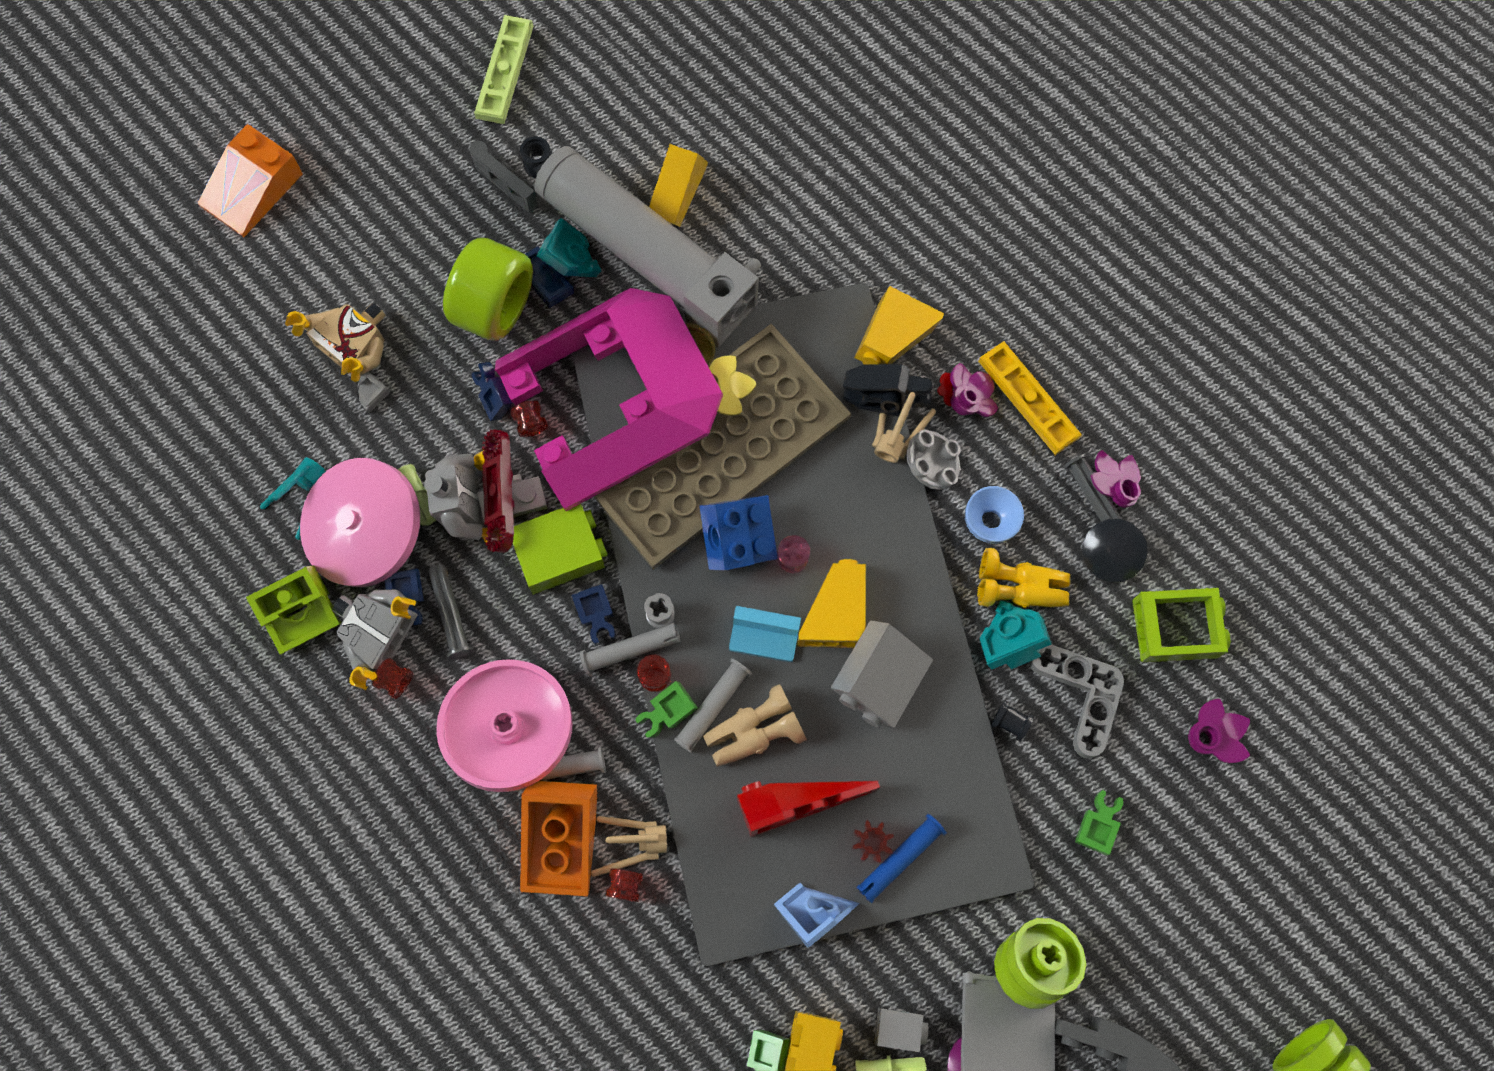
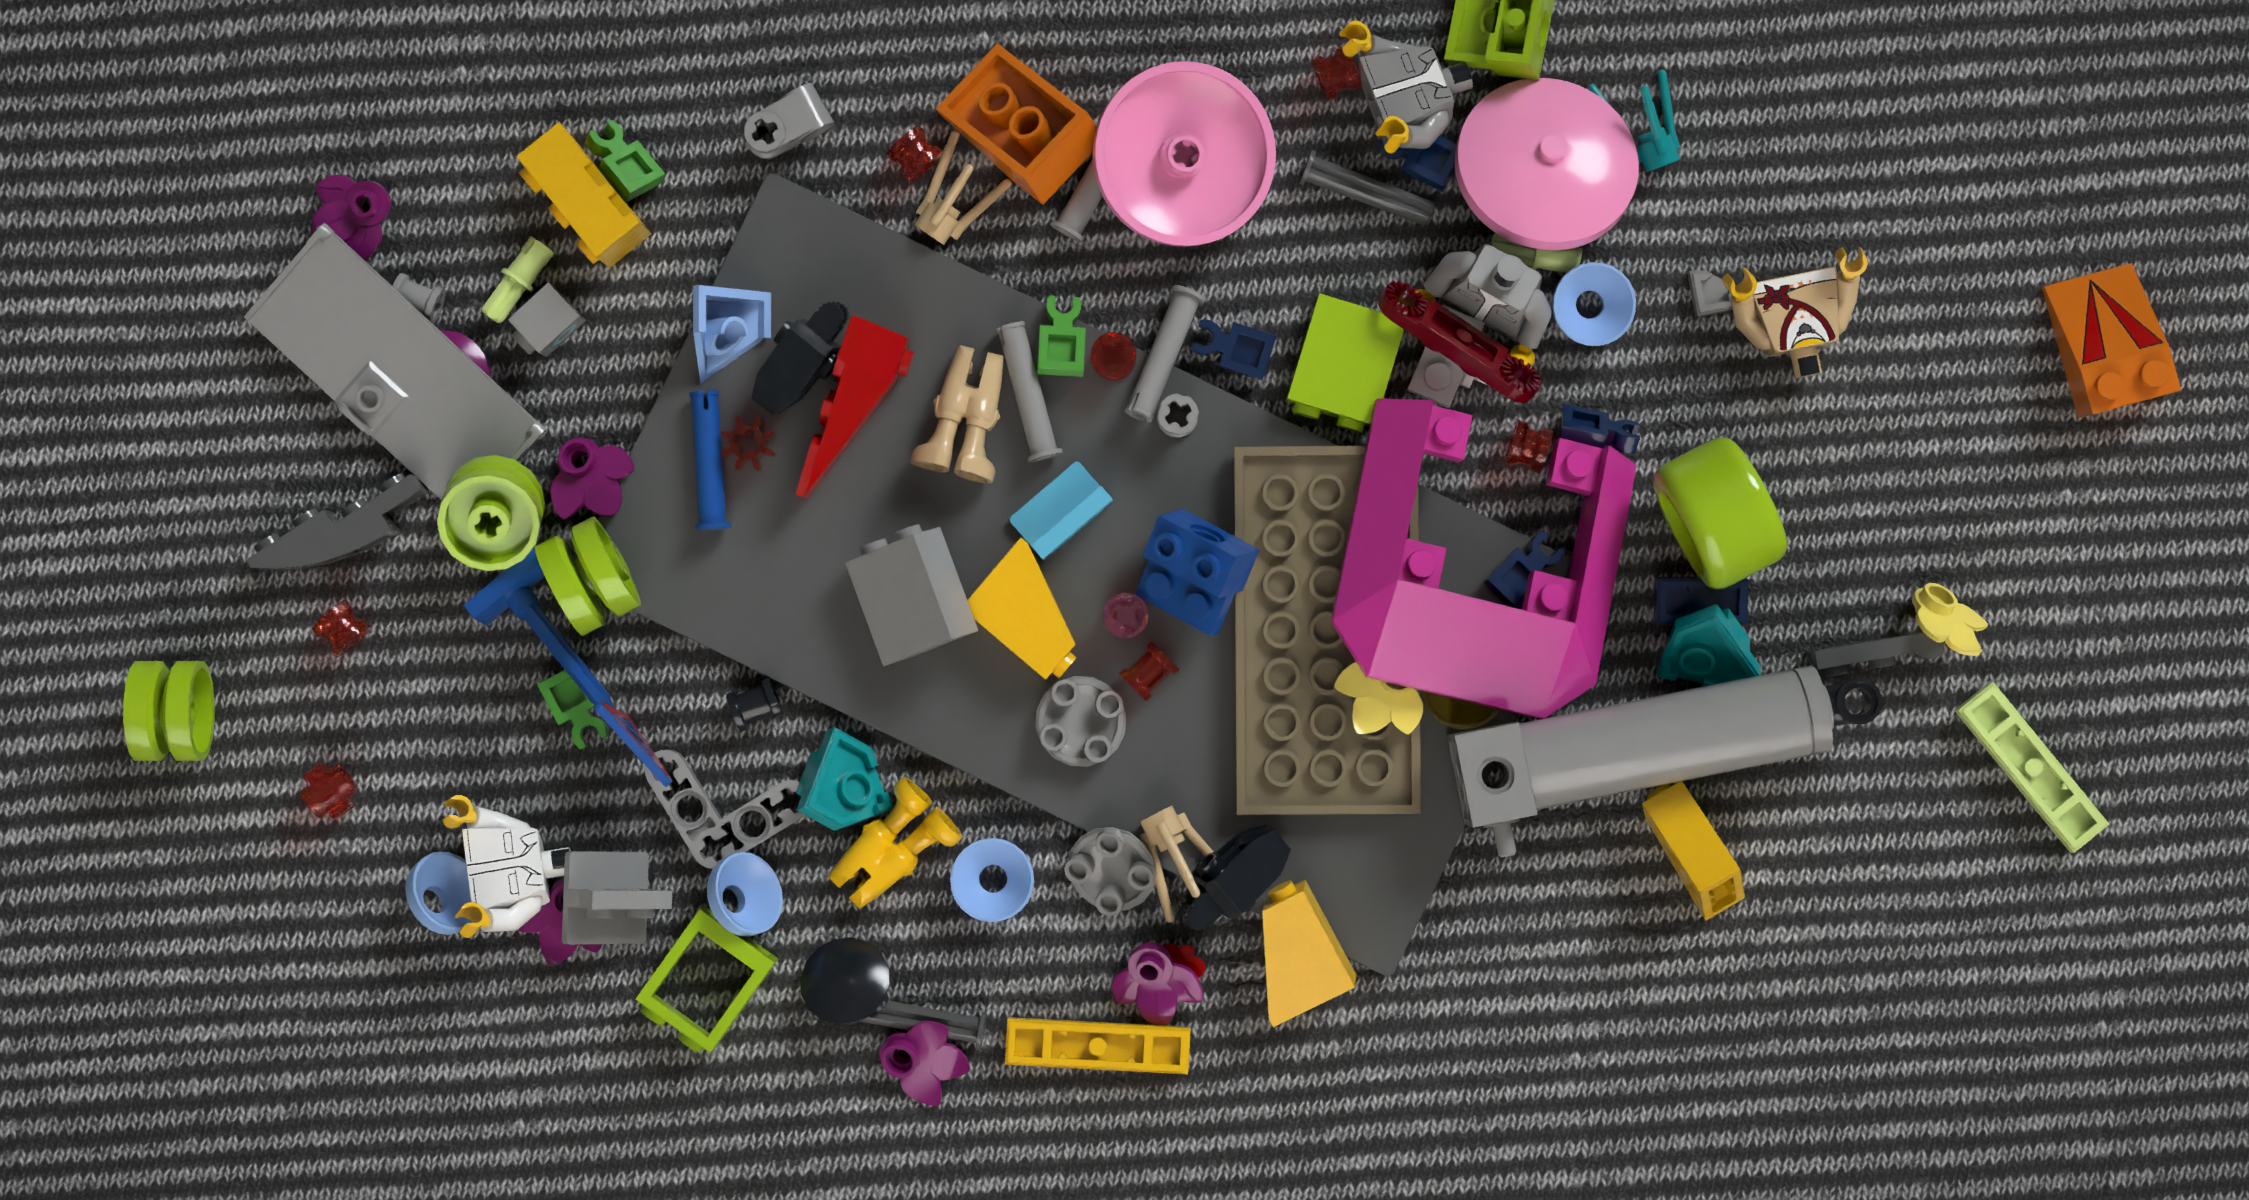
camera: 130 degrees right, 15 degrees up
(417, 430) = (1616, 298): none -> light blue piece
(458, 154) = (1947, 620): none -> light yellow plate
(603, 372) = (1511, 575): none -> dark blue plate
(658, 977) = (795, 116): none -> light grey piece
(798, 851) = (801, 356): none -> black hinge
(813, 518) = (1149, 671): none -> clear red bush
(870, 534) = (1081, 721): none -> light grey dish
(969, 918) = (594, 483): none -> magenta plate
(1028, 870) = (586, 577): none -> lime wheel
(1070, 911) = (514, 591): none -> blue piece
(1113, 633) = (756, 891): none -> light blue piece
(1179, 1001) = (341, 628): none -> clear red wheel
(1187, 712) = (608, 898): none -> light grey bracket
(1226, 784) = (504, 868): none -> white torso
(1259, 802) = (448, 879): none -> light blue piece
(1274, 928) = (328, 791): none -> clear red gear

